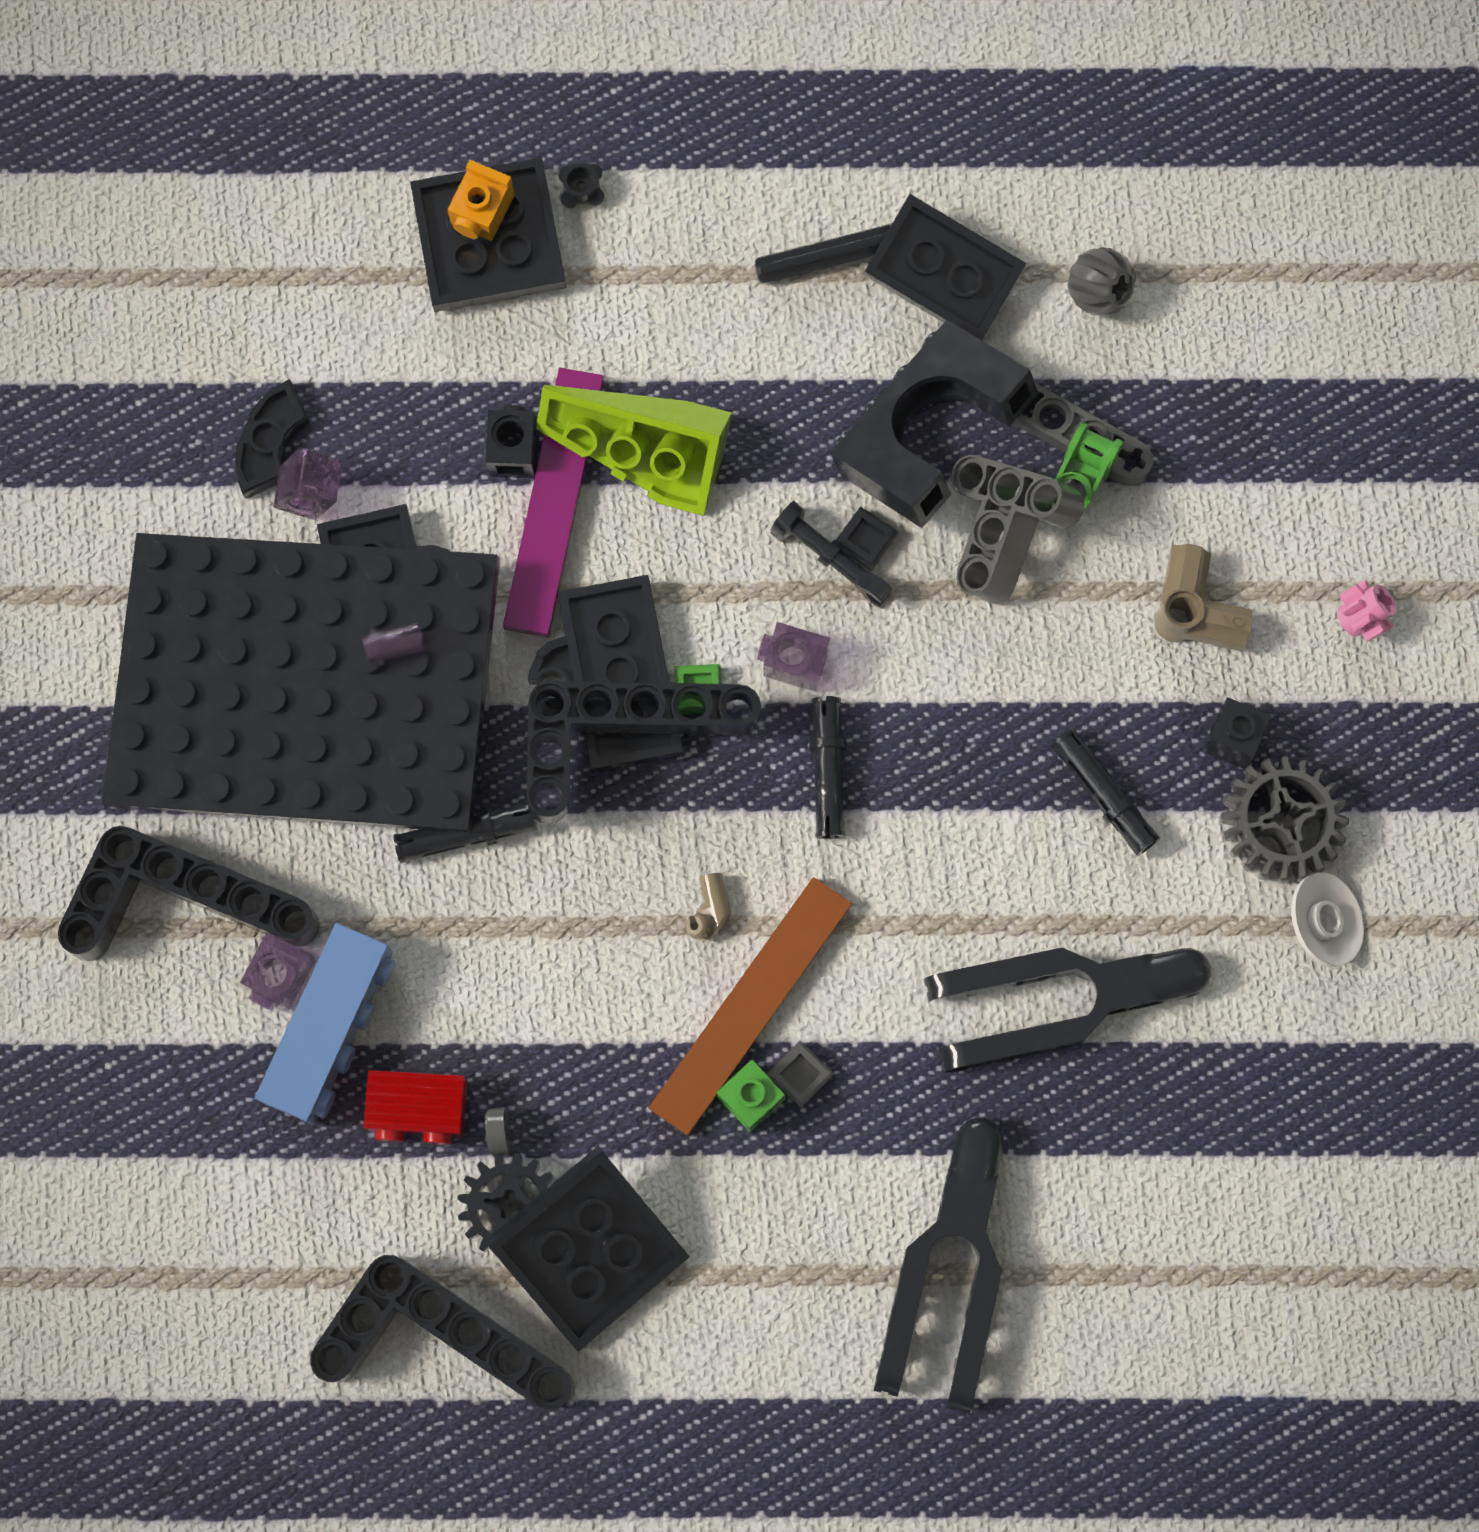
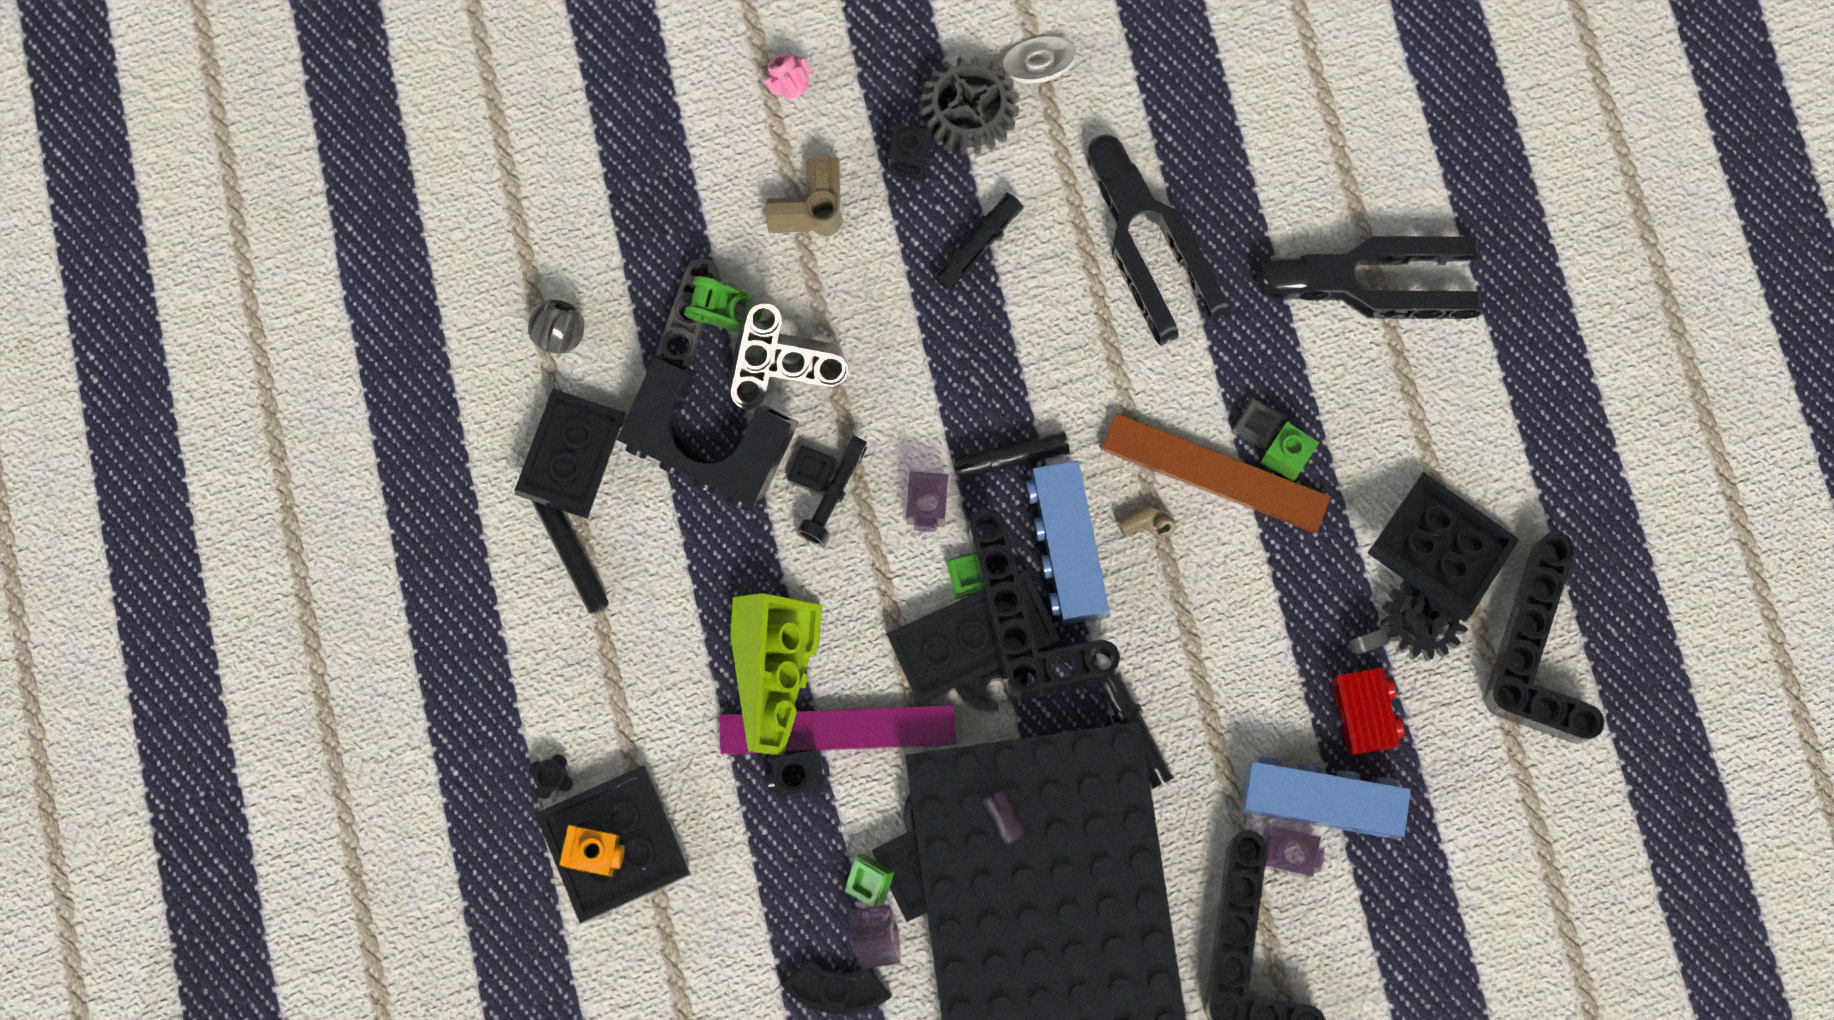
camera: 105 degrees left, 0 degrees up
(372, 494) = (869, 880): none -> bright green tile
(702, 804) = (1069, 543): none -> medium blue brick

